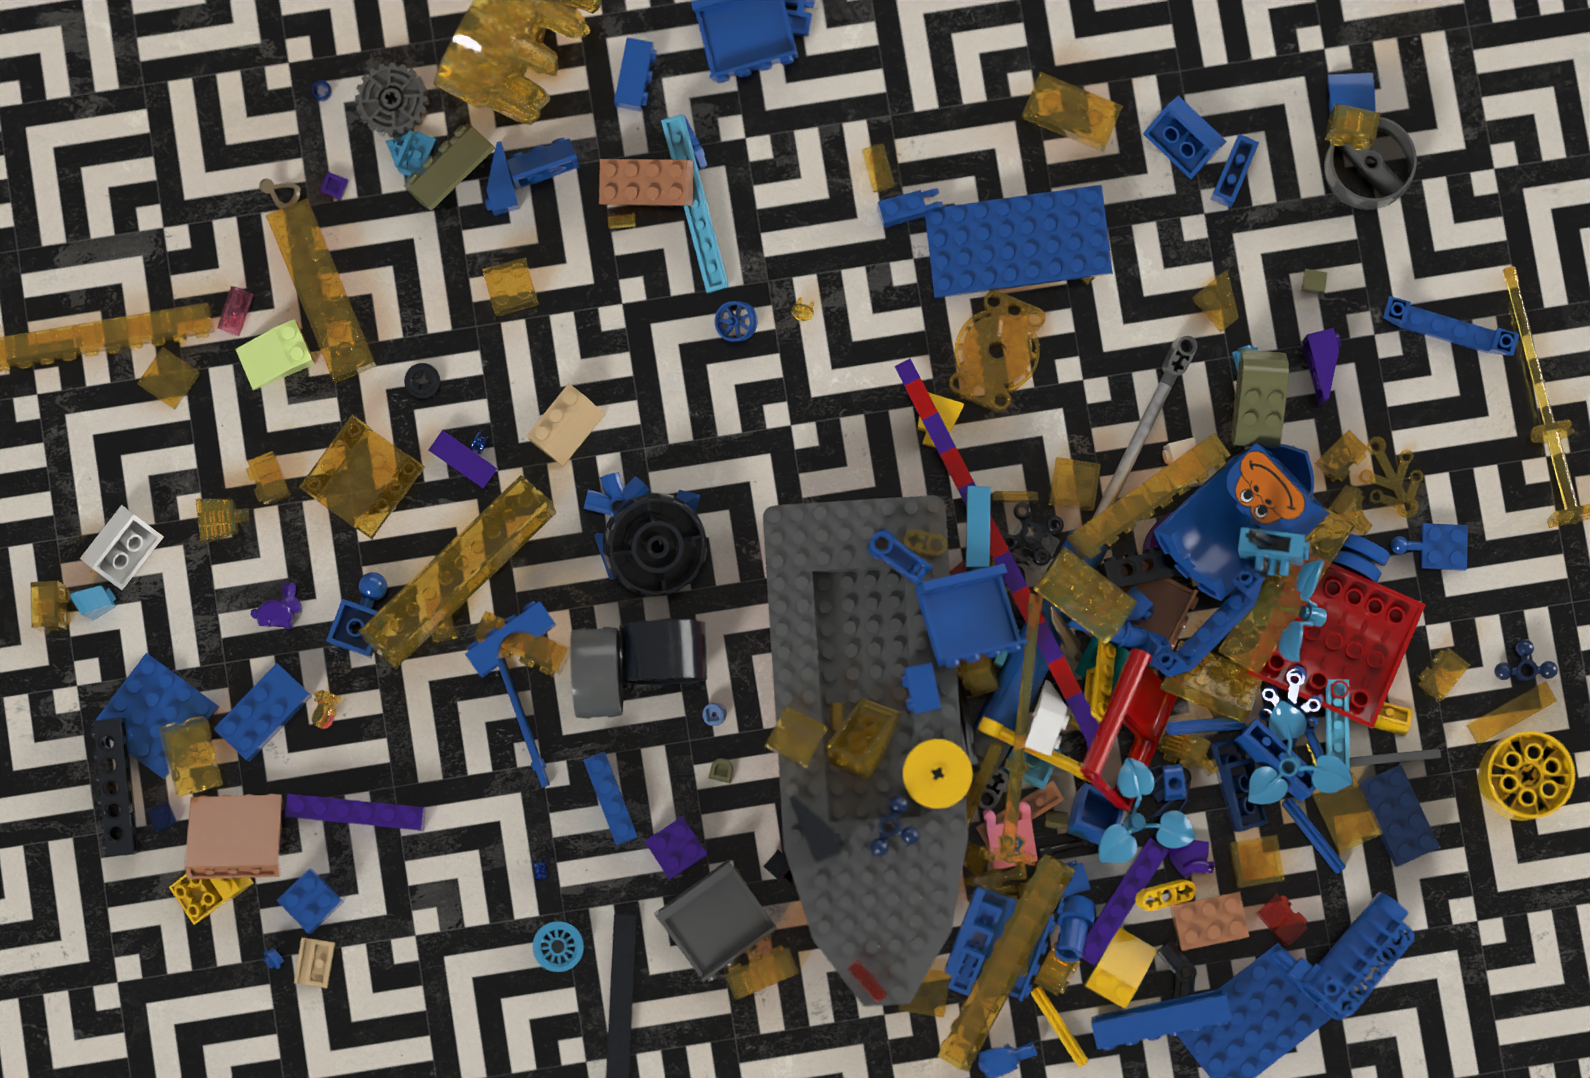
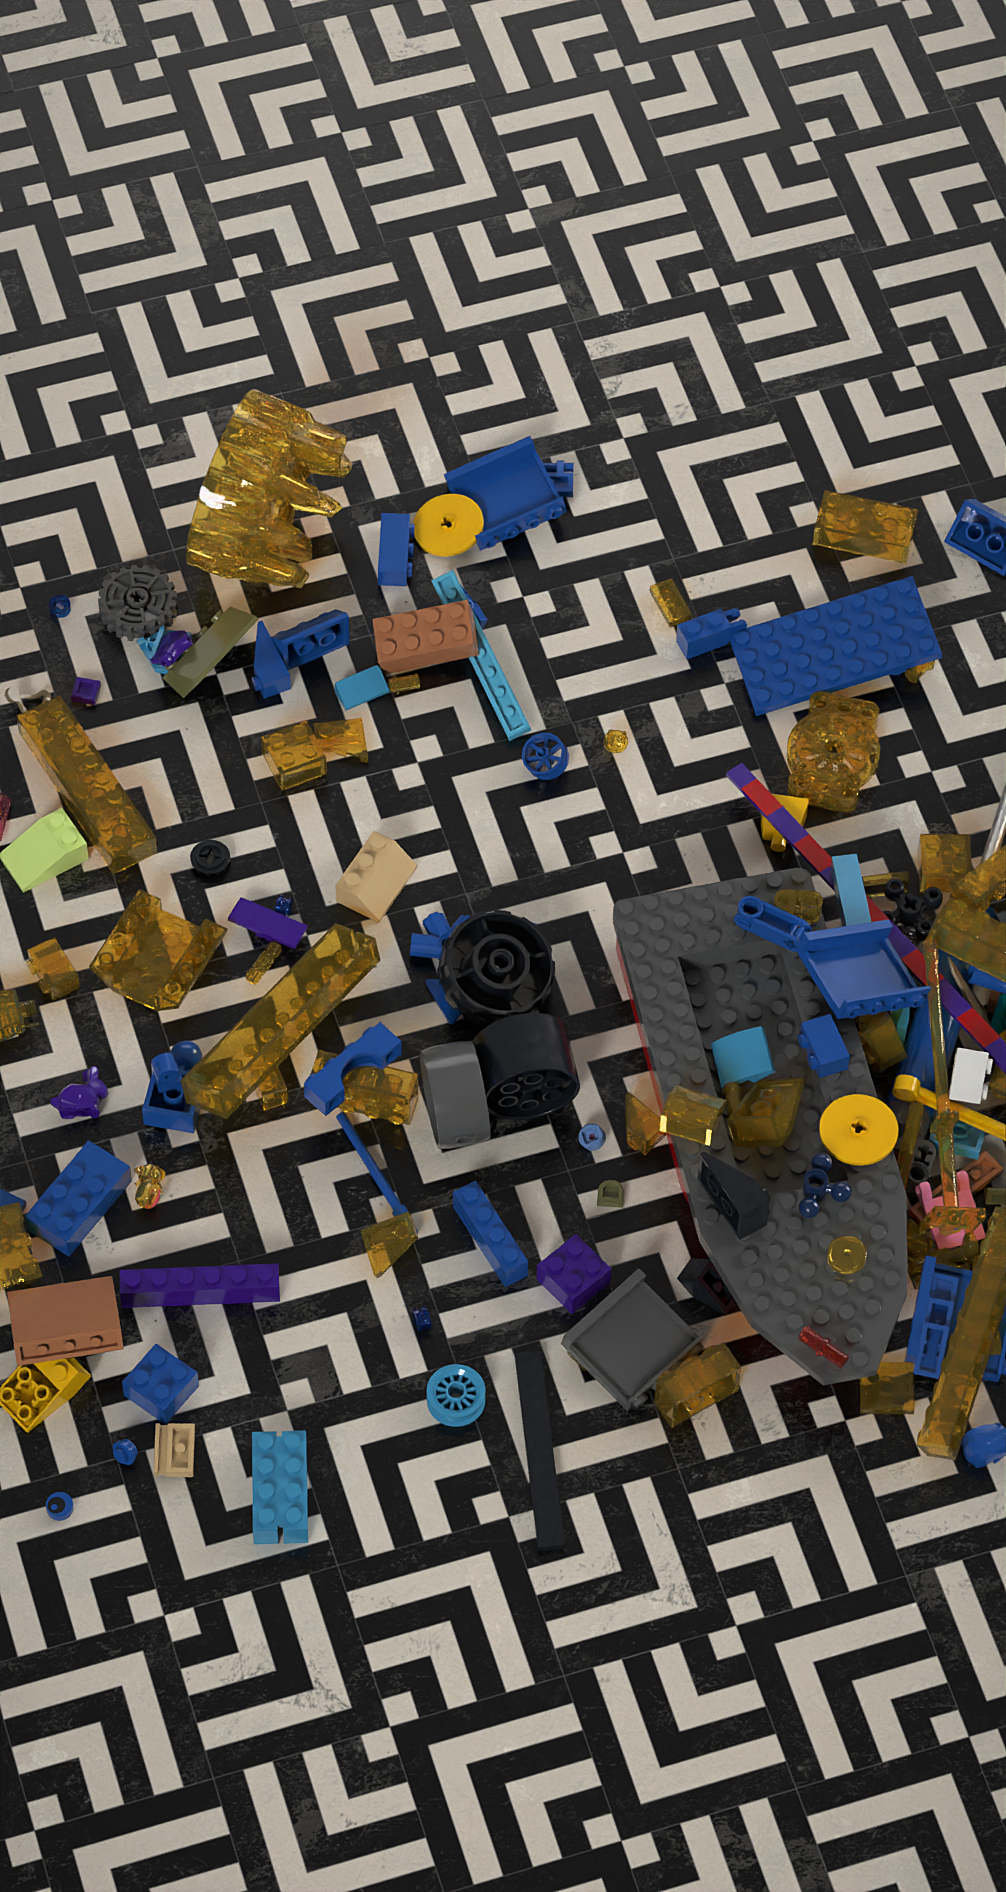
camera: 10 degrees left, 25 degrees down
(213, 998) = (59, 1506): none -> blue tile
(350, 614) = (165, 1072): none -> blue leg
(397, 1012) = (279, 1487): none -> dark azure piece
(415, 161) = (171, 648): none -> dark purple arm
(454, 496) = (263, 963): none -> clear yellow axle
(522, 793) = (388, 1241): none -> clear yellow wing
(558, 270) = (342, 737): none -> clear yellow wing
(582, 220) = (361, 687): none -> dark azure slope
(673, 44) = (436, 537): none -> yellow piece
(758, 711) = (641, 1125): none -> clear yellow slope
(852, 678) = (743, 1056): none -> dark azure slope
(913, 897) = (842, 1263): none -> clear yellow piece

